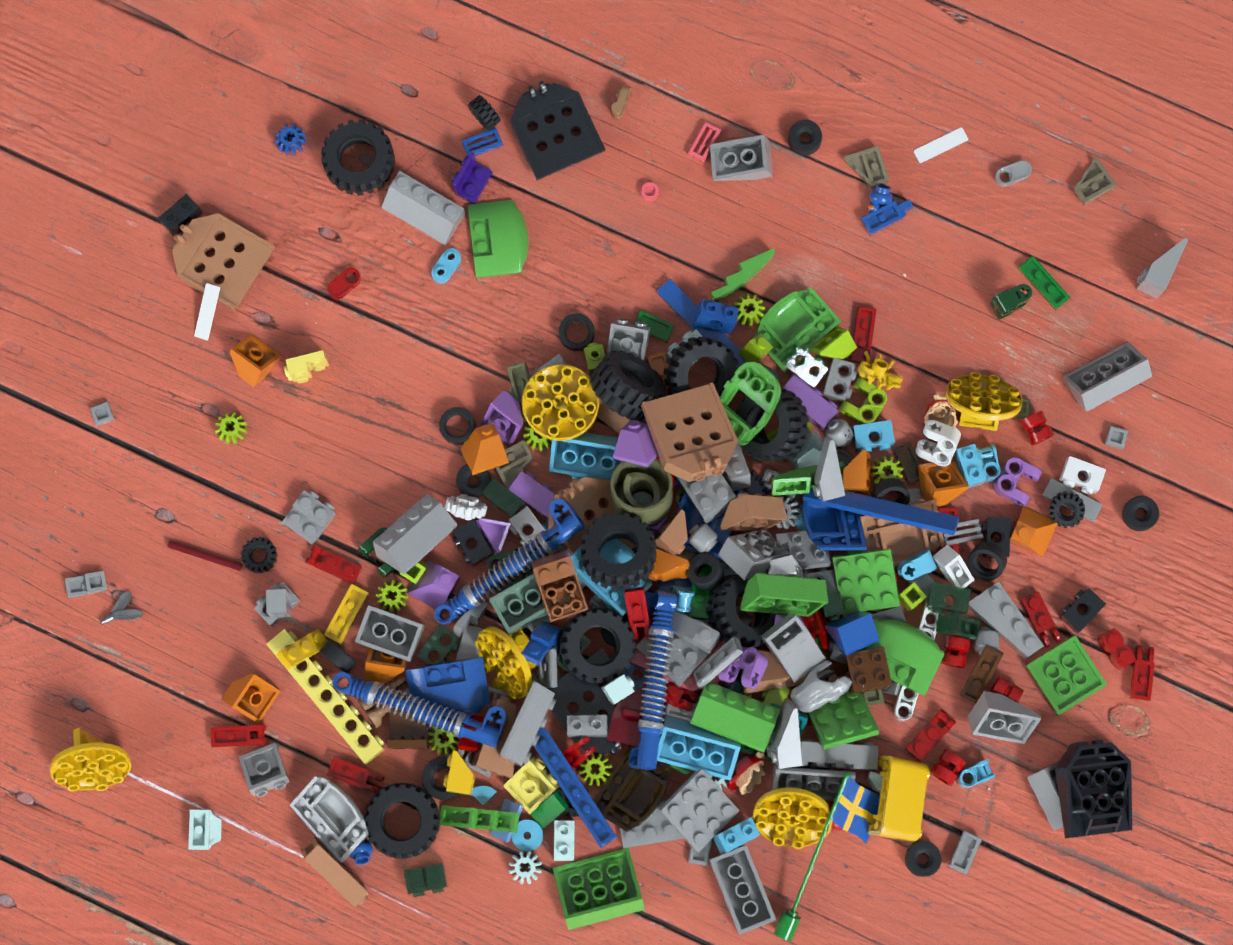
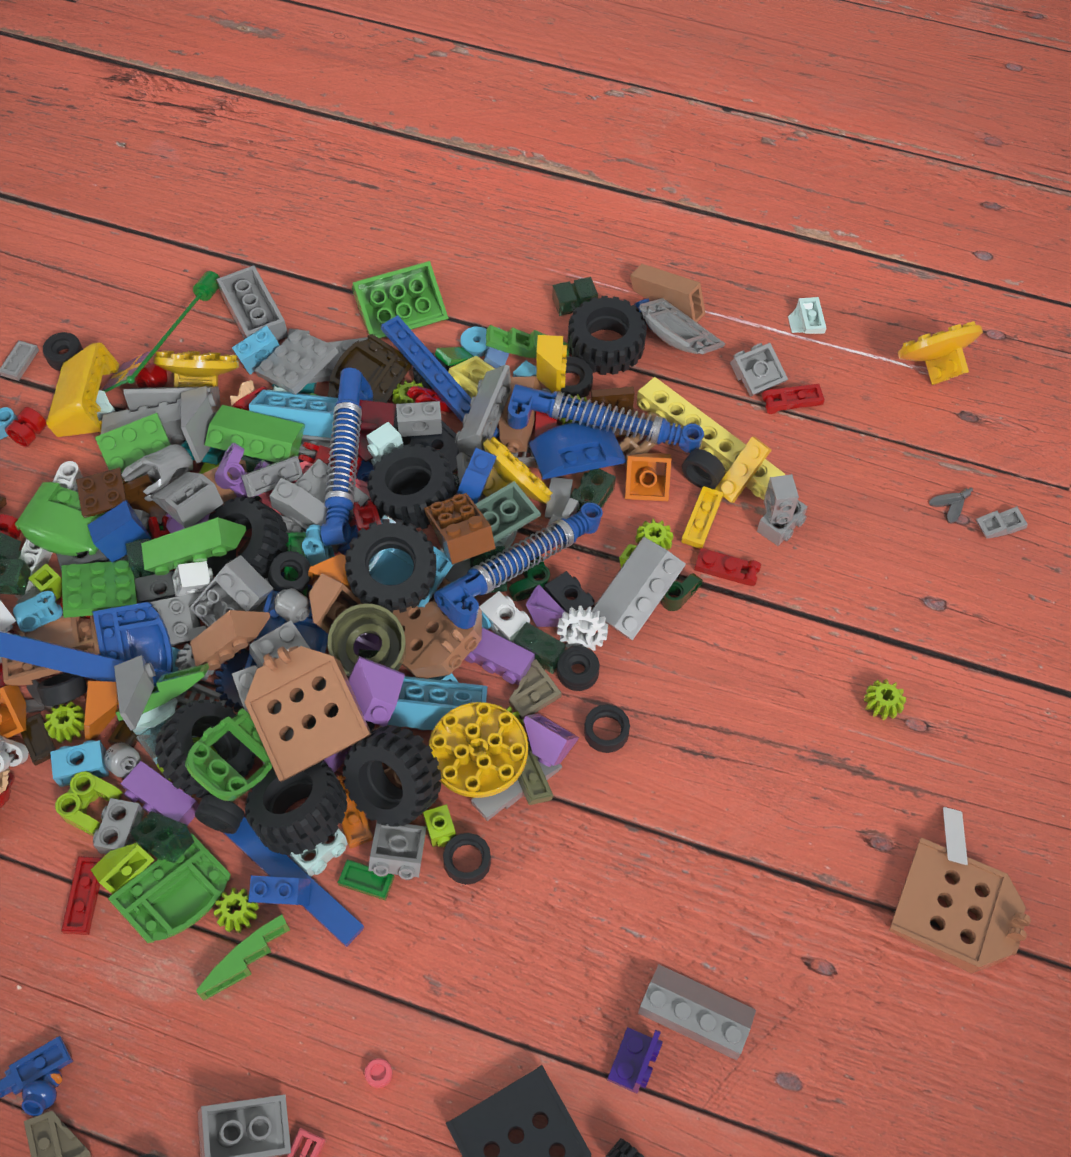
camera: 175 degrees right, 20 degrees down
(102, 414) = (1045, 705): light grey tile -> none
(180, 213) = (1029, 963): black brick -> none
(204, 555) = (878, 564): dark red bar -> none
(251, 696) = (791, 427): orange slope -> none
(253, 359) = (879, 784): orange slope -> none
(270, 555) = (815, 578): black tyre -> none
(283, 139) = (912, 1106): blue gear -> none
(300, 367) = (815, 773): light yellow plate -> none
(309, 516) = (766, 613): light grey plate -> none
(340, 286) = (788, 892): red piece -> none
(353, 134) = (836, 1057): black tyre -> none
(353, 774) = (668, 374): red hinge -> none
(389, 633) = (649, 495): light grey slope -> none
(434, 585) = (602, 555): medium lavender slope -> none
(446, 265) = (654, 933): medium azure plate -> none
(484, 149) = (650, 1113): blue tile -> none
(484, 449) = (569, 694): orange slope -> none
(498, 238) = (587, 983): bright green slope -> none
(525, 874) = (475, 312): light aqua gear -> none
(564, 840) = (437, 330): light aqua brick -> none
(756, 349) = (226, 853): lime brick -> none
(879, 371) = (62, 839): yellow animal -> none
(930, 736) = (43, 460): red plate -> none

